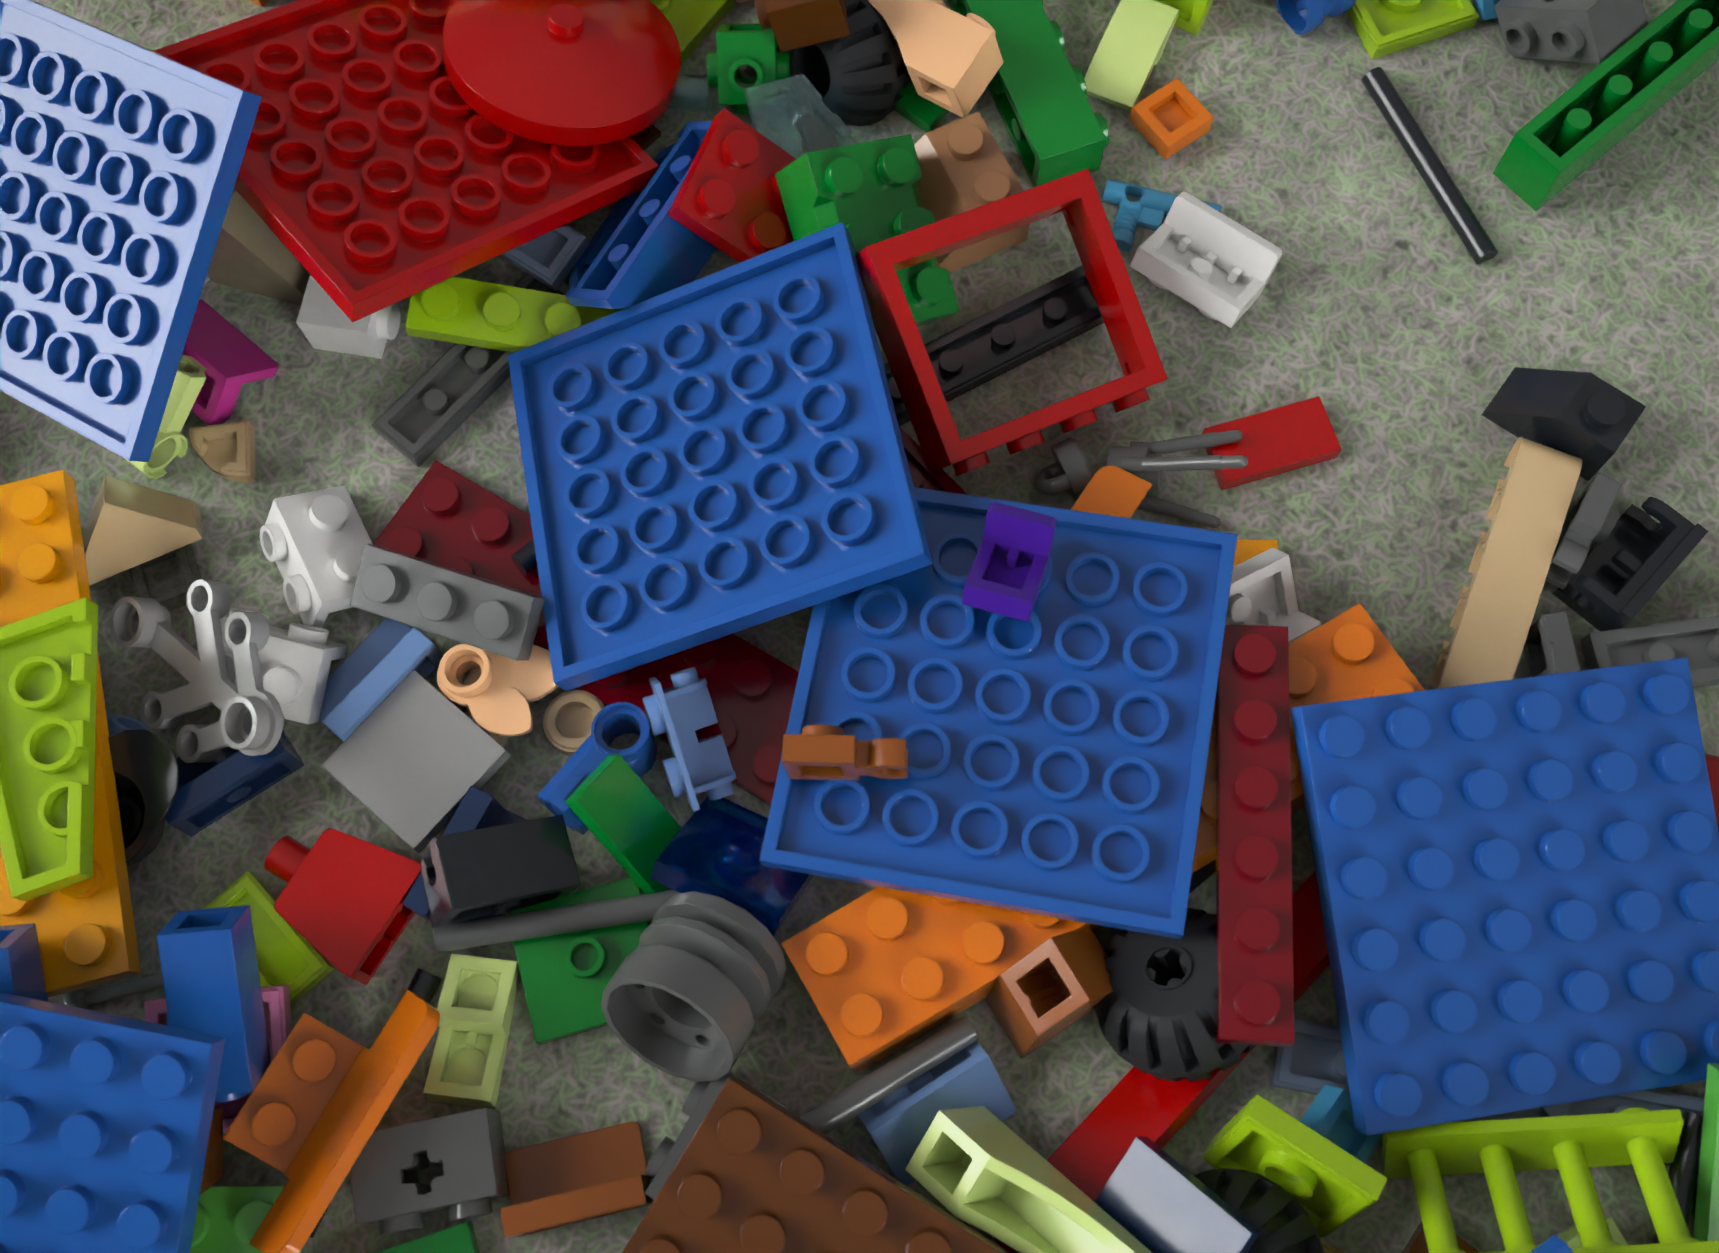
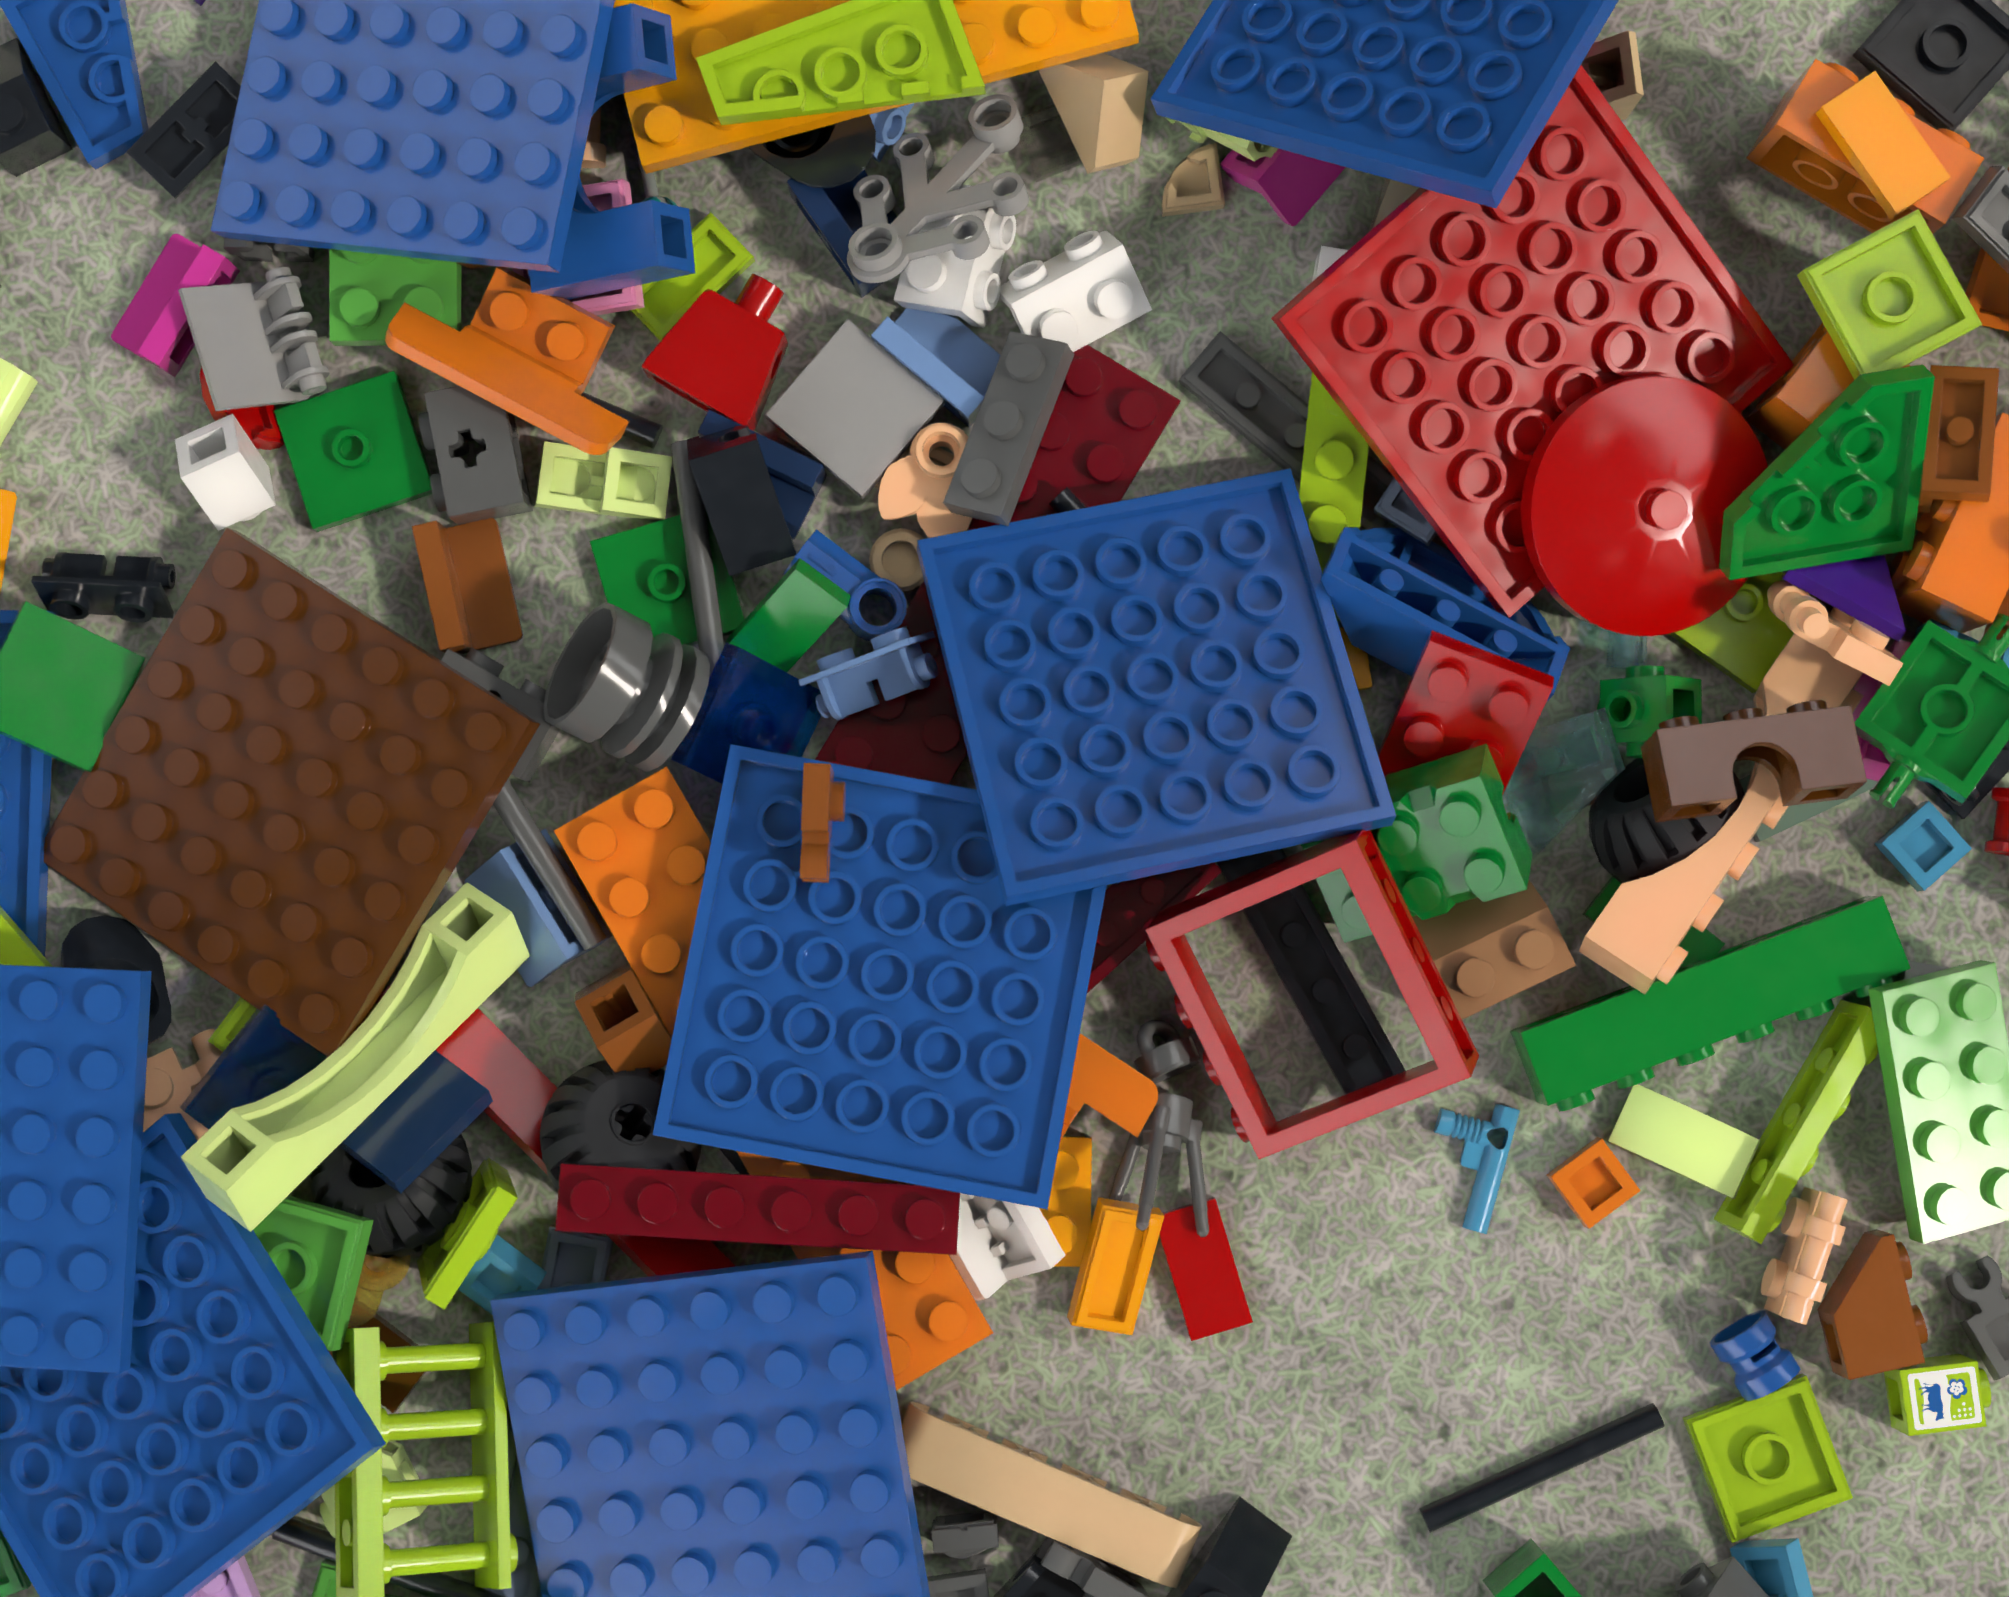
camera: 90 degrees right, 15 degrees up
(1010, 561) = (1007, 981): dark purple bracket -> none
(1207, 260) = (1408, 1210): white bracket -> none
(1276, 515) = (1114, 1268): none -> light orange tile

